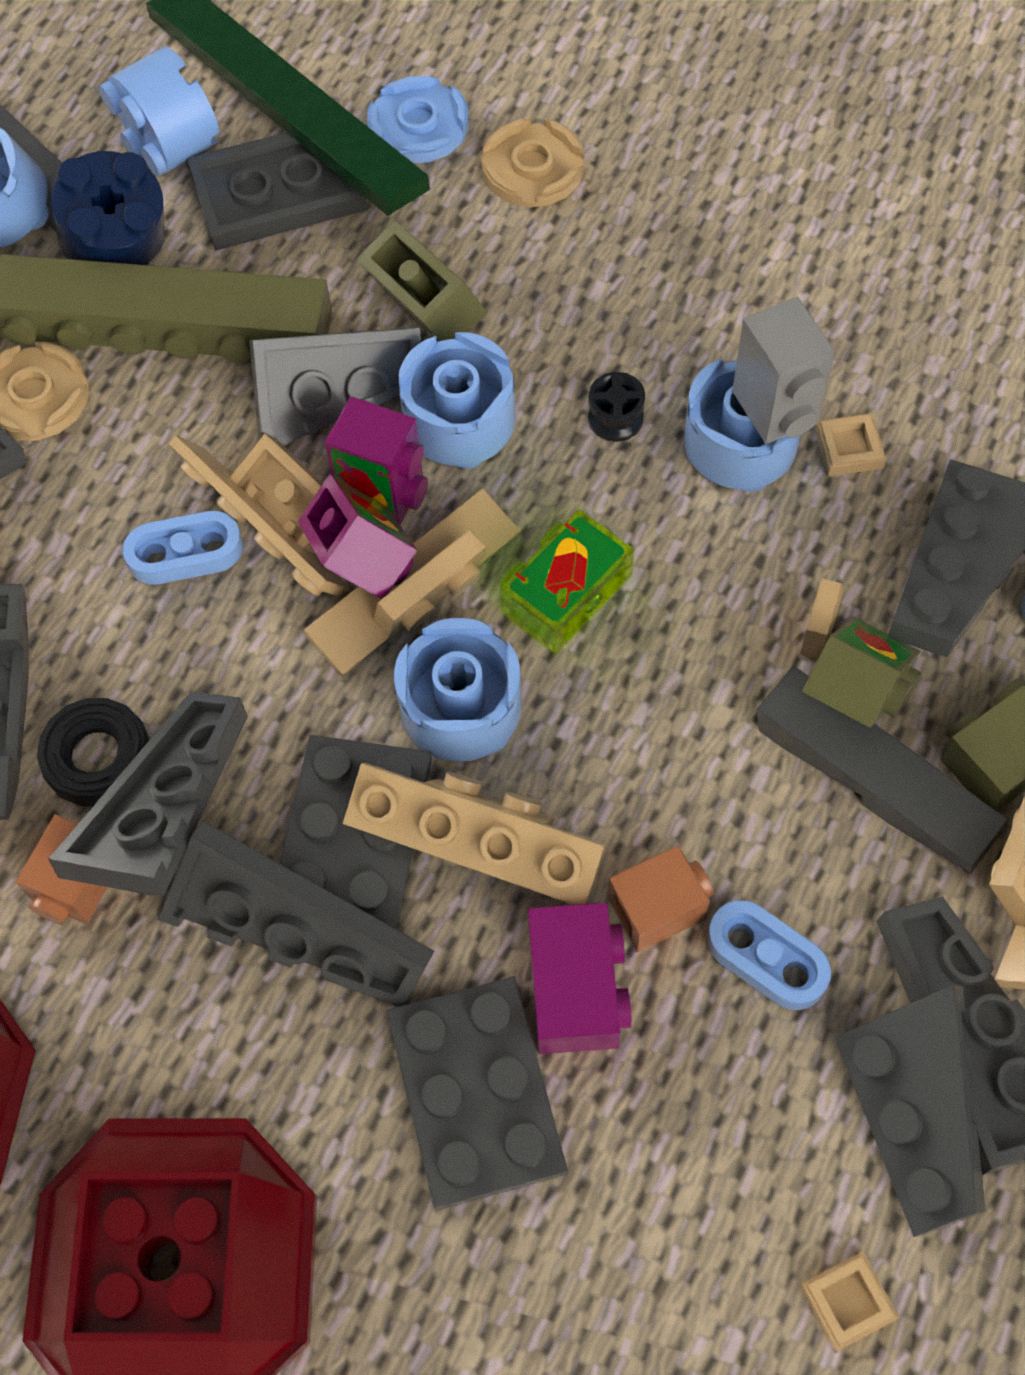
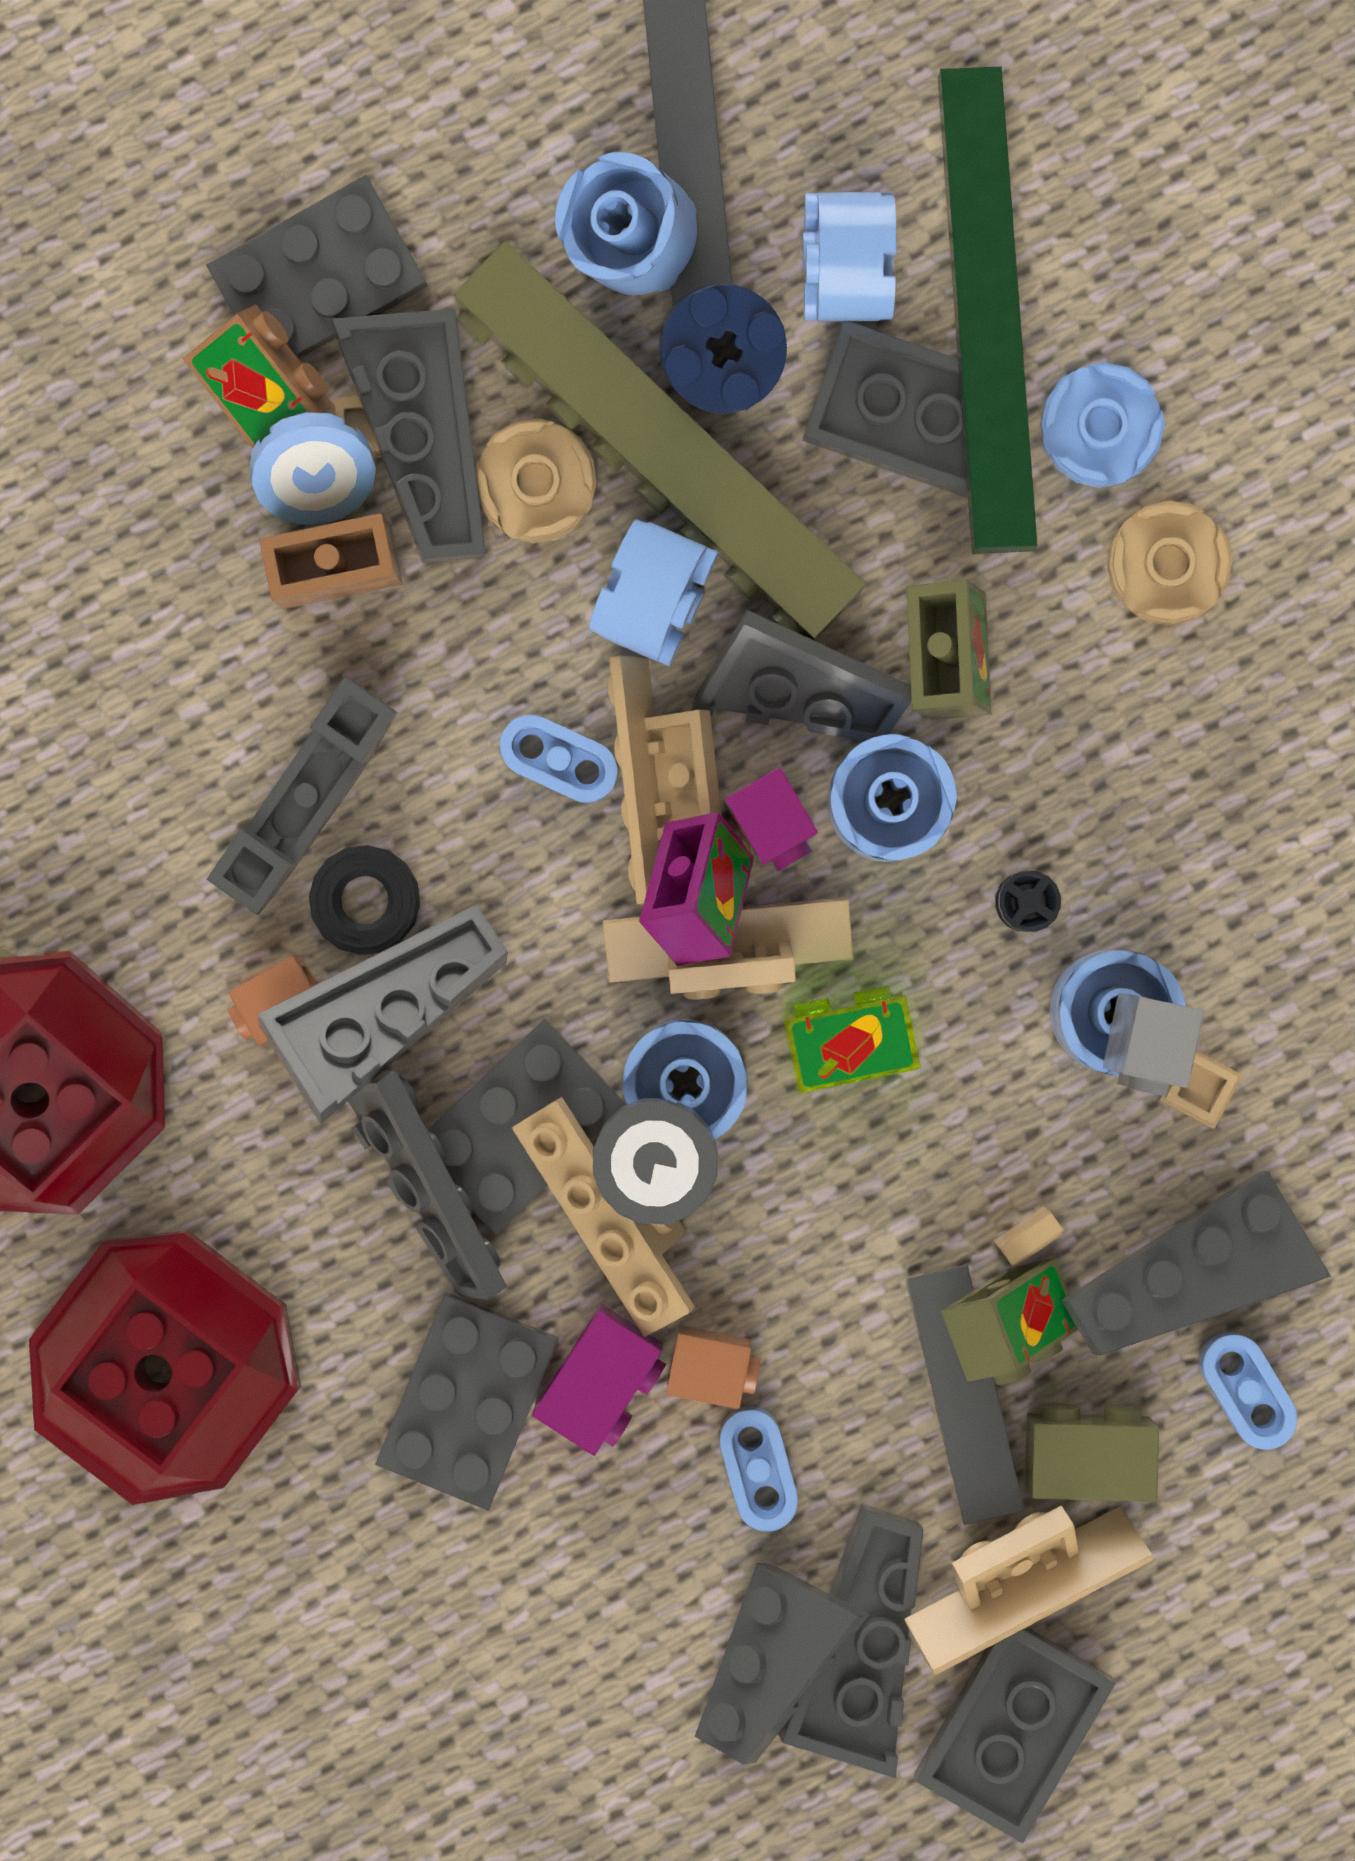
camera: 35 degrees right, 25 degrees up
(168, 381) = (652, 591): none -> light blue brick
(478, 740) = (655, 1161): none -> dark grey tile
(849, 1301) = (615, 1740): tan tile -> none

